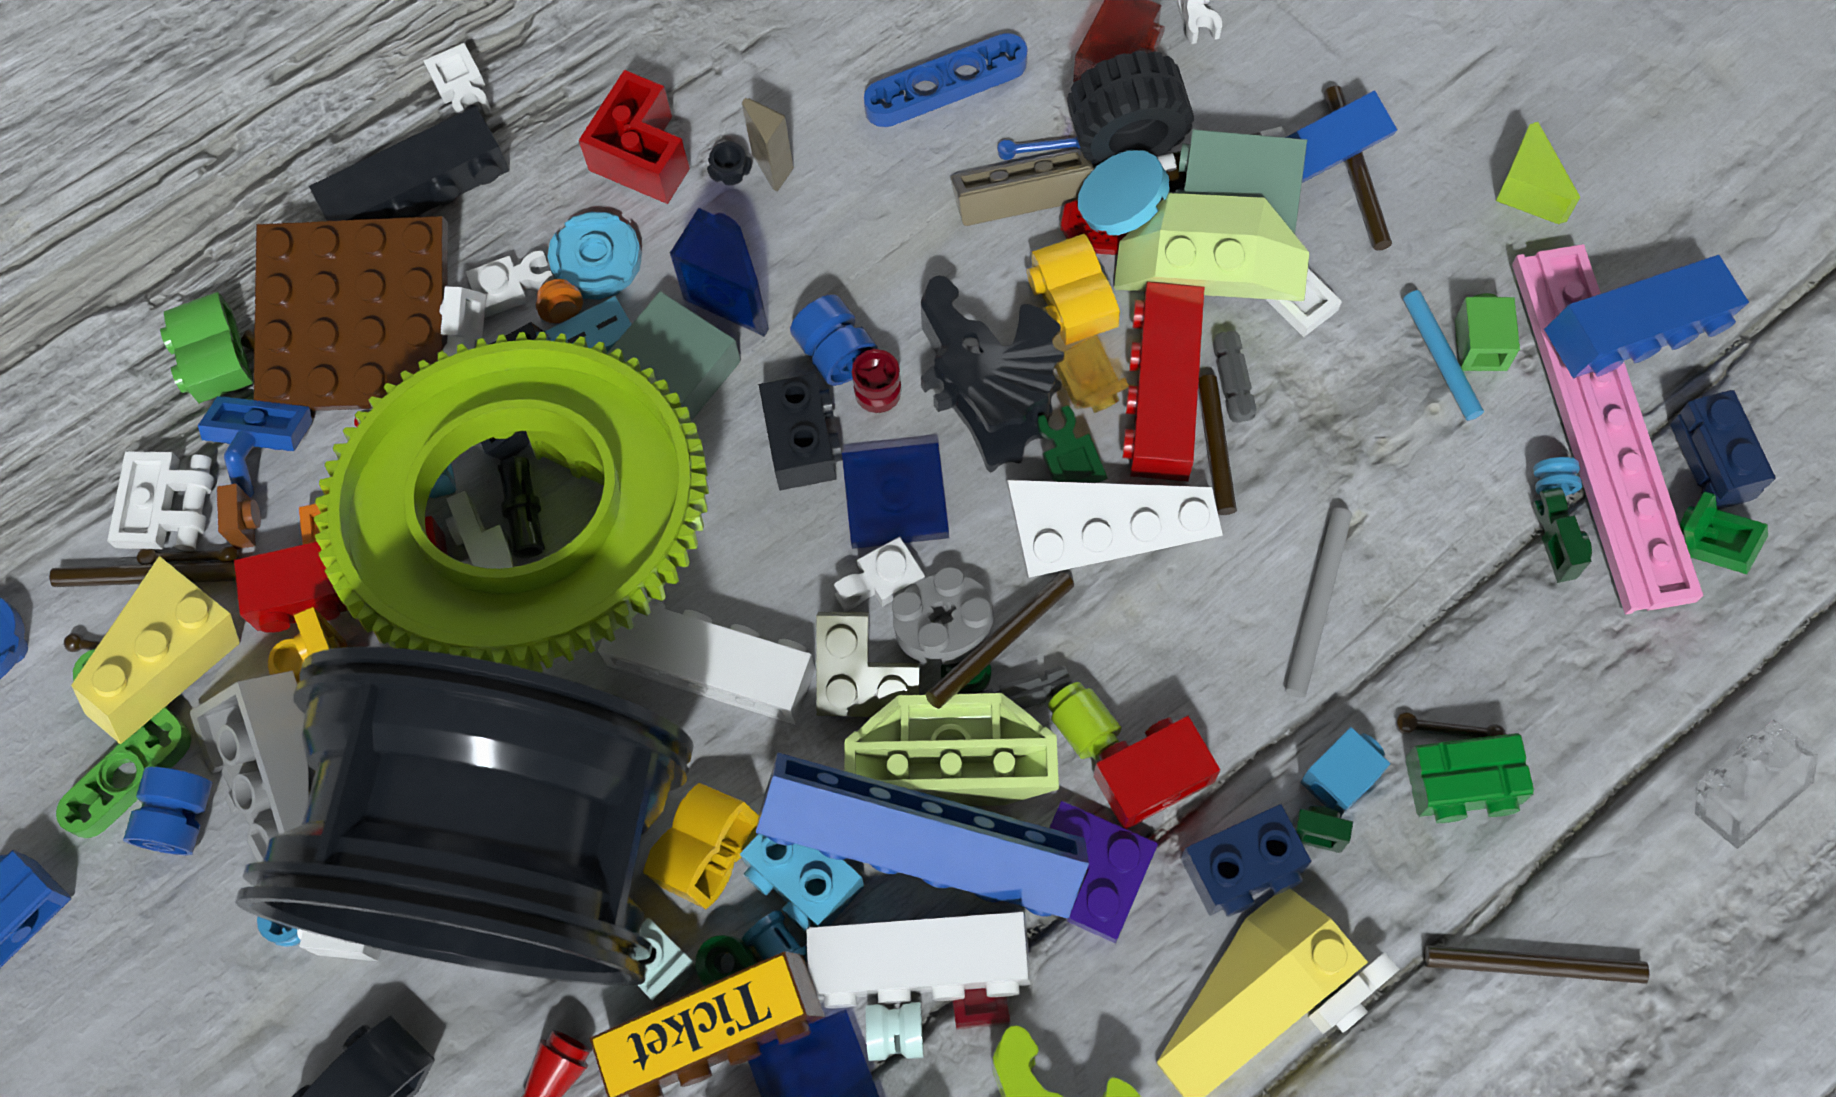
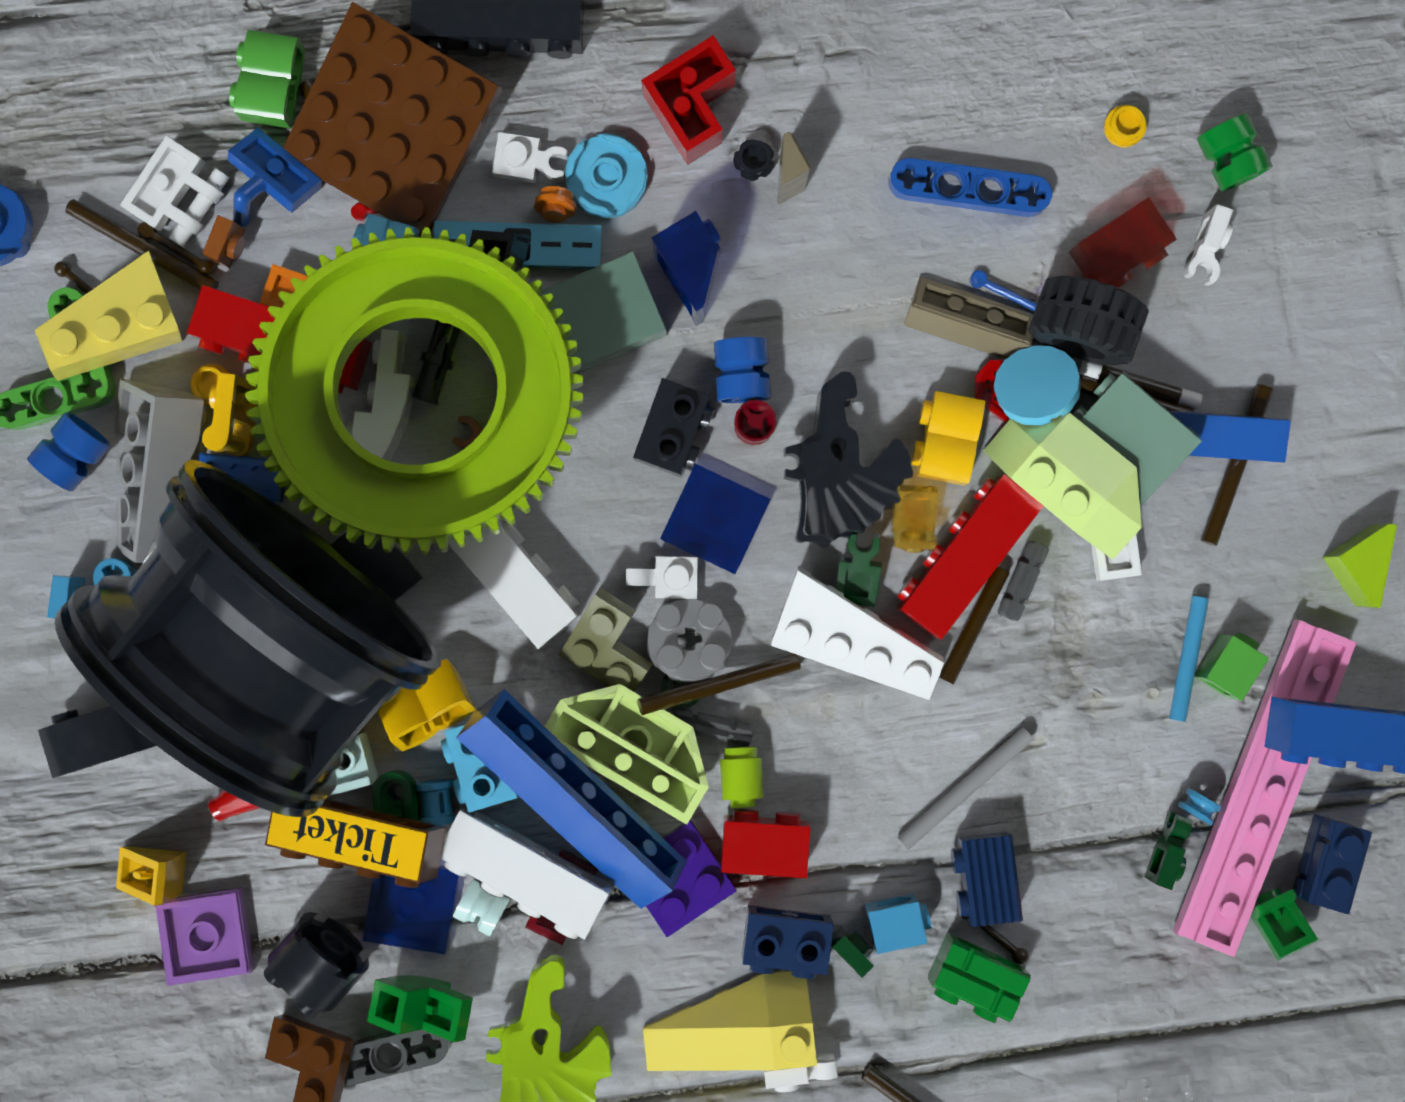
camera: 25 degrees right, 20 degrees up
(241, 969) = (61, 591): none -> dark azure plate
(462, 317) = (469, 182): white plate -> none
(1405, 669) = (988, 879): none -> dark blue brick

